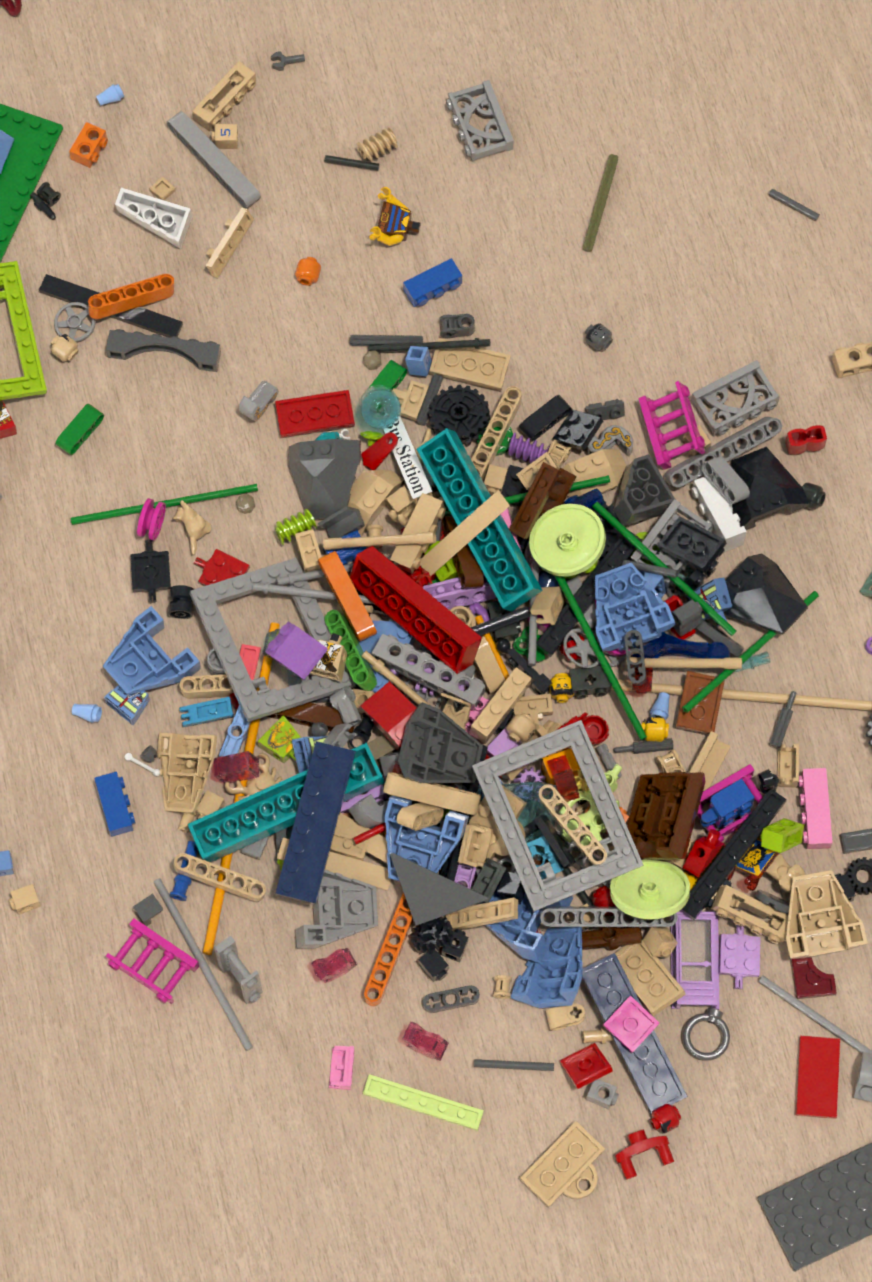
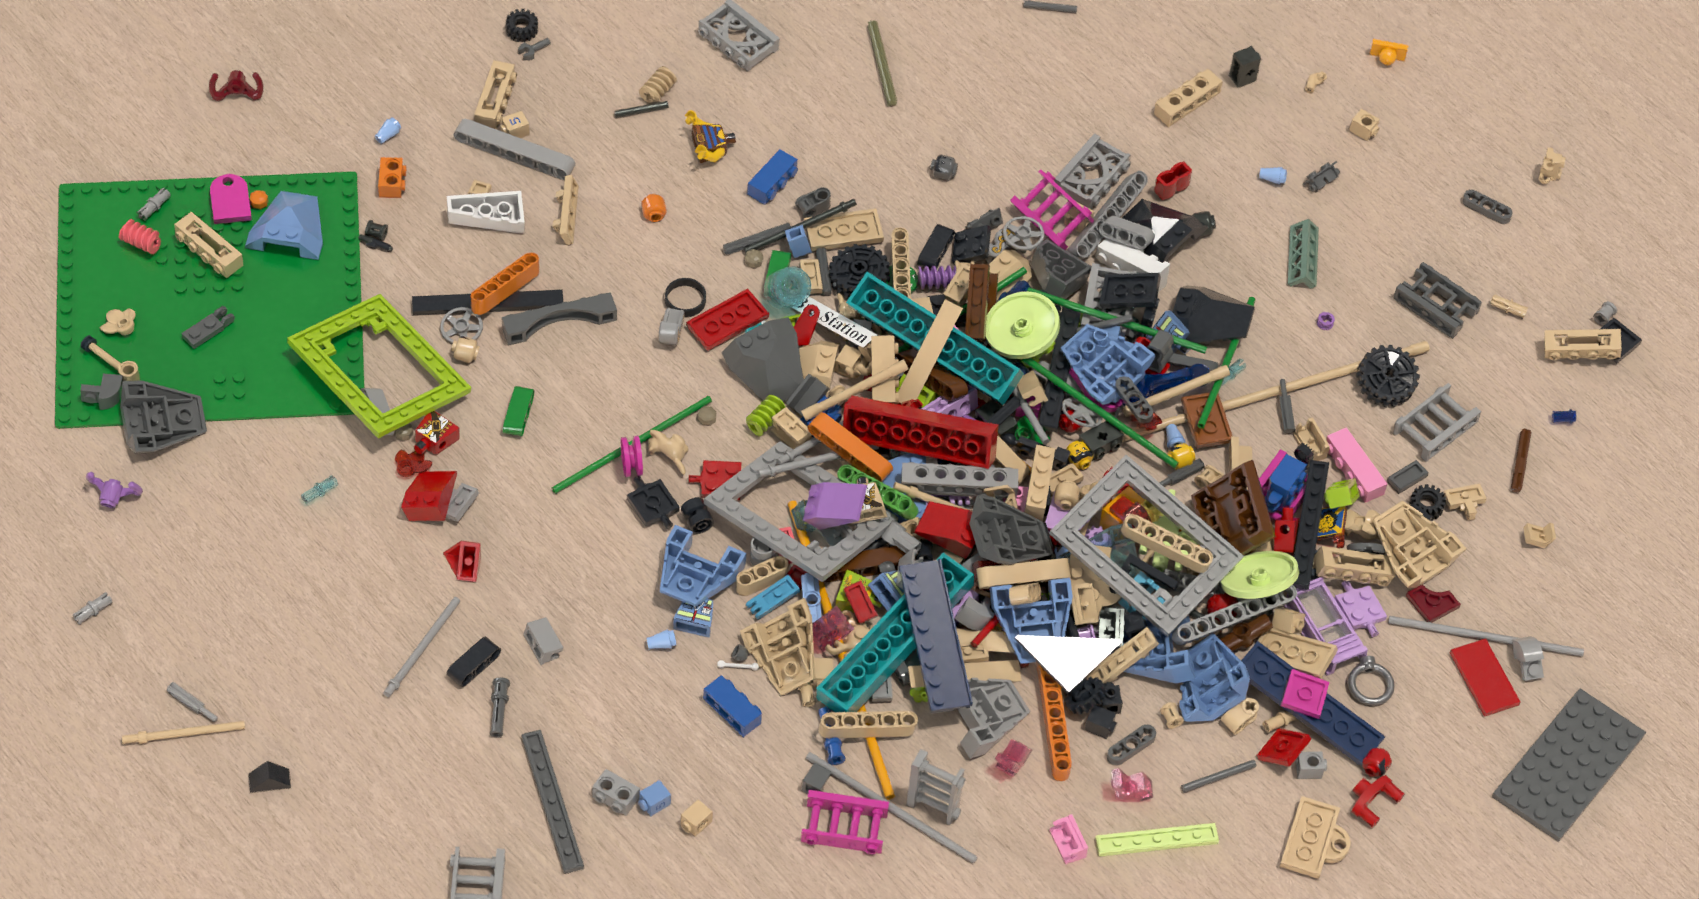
camera: 30 degrees left, 15 degrees down
(276, 753) = (860, 602): none -> red tile
(283, 23) = (525, 32): none -> black tyre
(292, 357) = (686, 282): none -> black tyre
(630, 439) = (1023, 233): none -> light grey wheel

